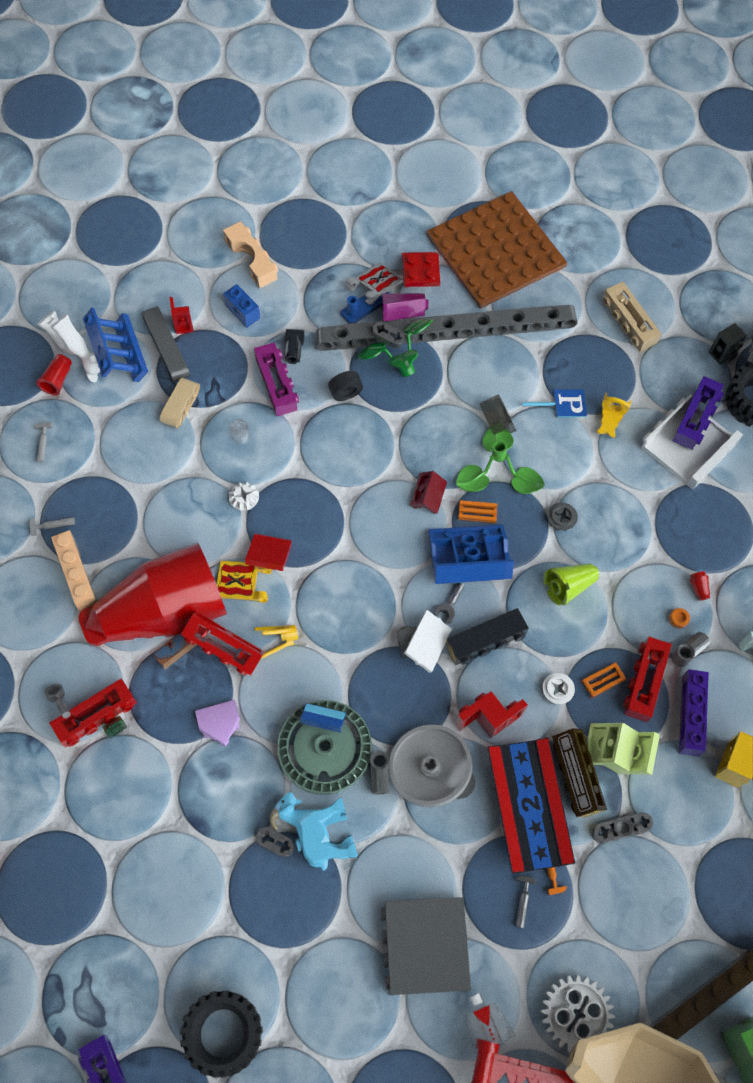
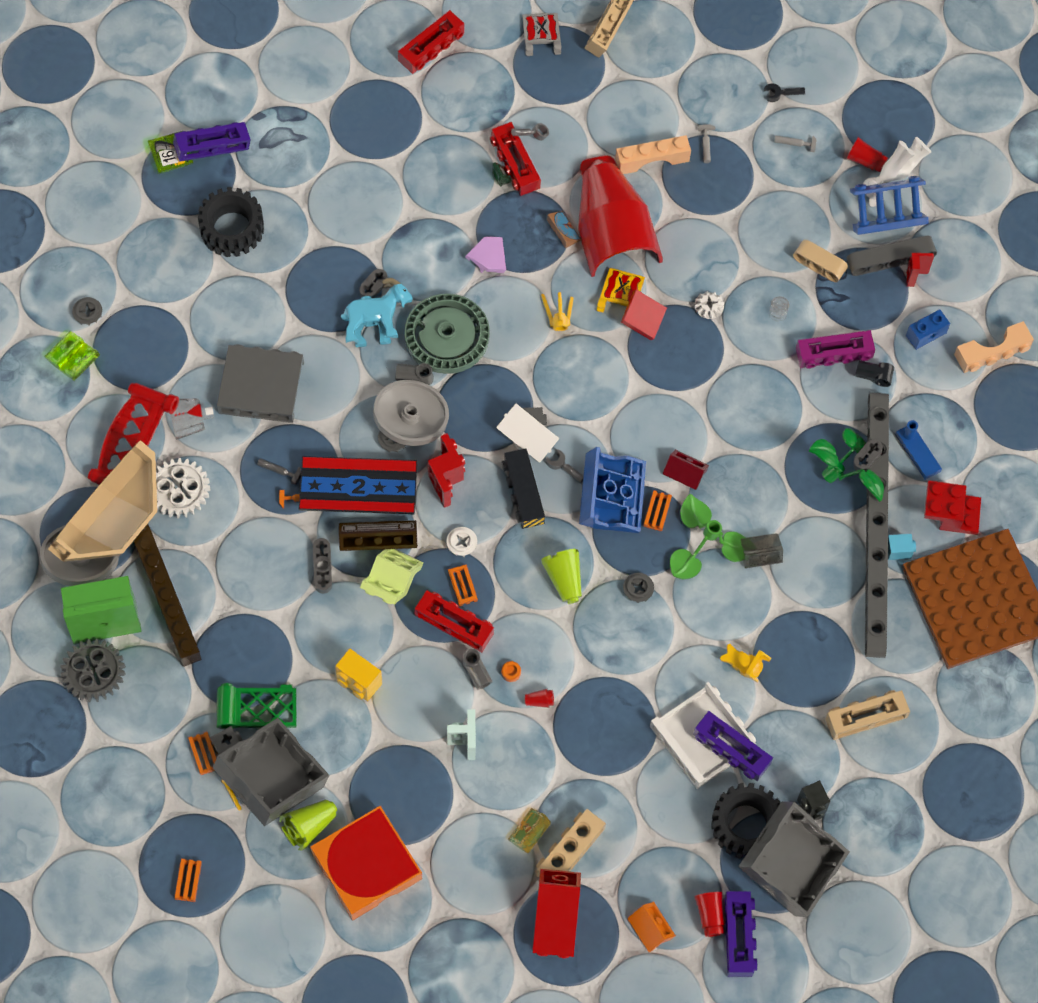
camera: 100 degrees right, 0 degrees up
(211, 647) = (557, 261): red brick -> none
(323, 717) = (470, 330): blue slope -> none
(345, 385) = (815, 408): black tyre -> none
(377, 280) = (945, 464): light grey flag -> none
(403, 305) = (905, 478): magenta slope -> none
(465, 304) = (901, 546): none -> medium azure brick
(567, 403) = (770, 628): blue piece -> none
(693, 713) = (412, 652): dark purple brick -> none

